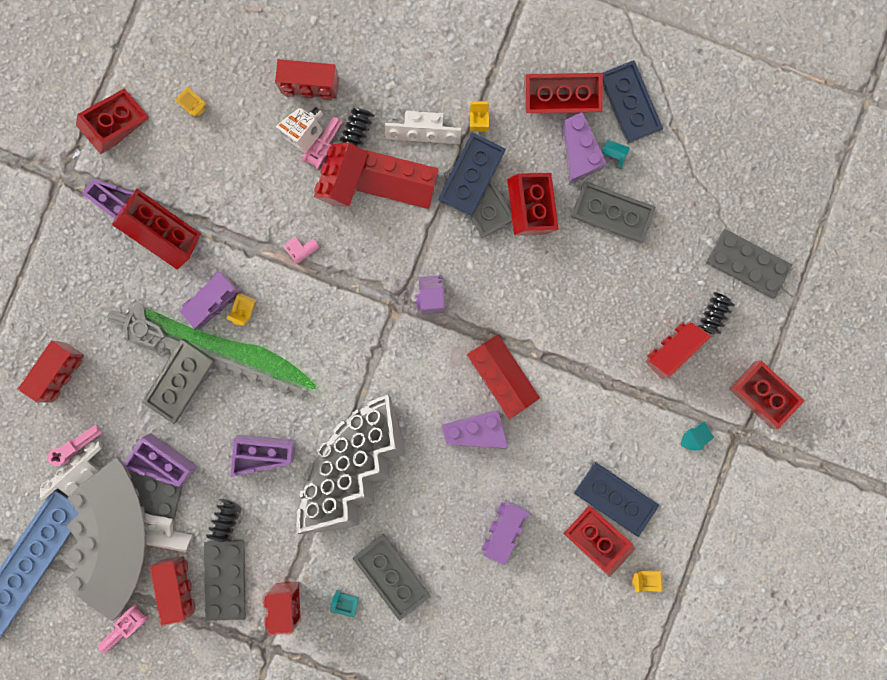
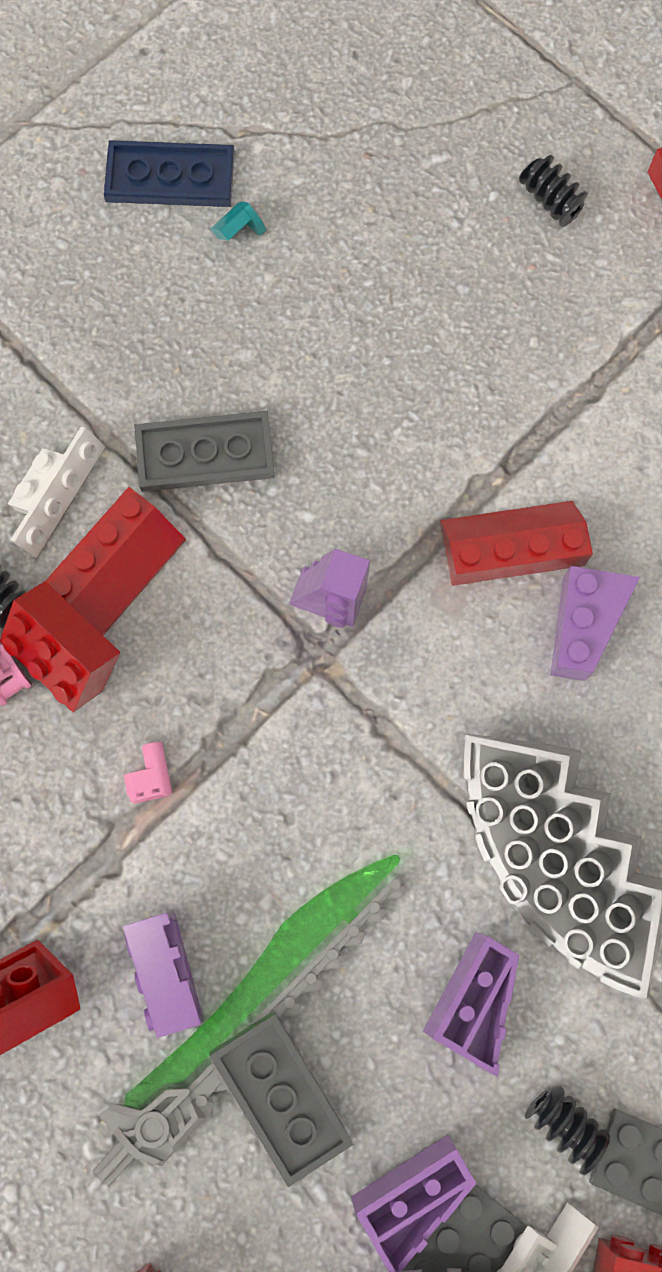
camera: 65 degrees left, 10 degrees down
(242, 310) = (206, 924): yellow bracket -> none
(471, 174) = (165, 444): dark blue tile -> none
(479, 116) = (76, 395): yellow bracket -> none
(532, 203) = (258, 370): red brick -> none
(563, 93) = (105, 253): red slope -> none
(581, 148) = (205, 267): medium lavender wedge -> none
(613, 212) = (326, 267): dark grey plate -> none
(676, 349) = (587, 262): red slope -> none
(749, 263) = (495, 118): dark grey plate -> none

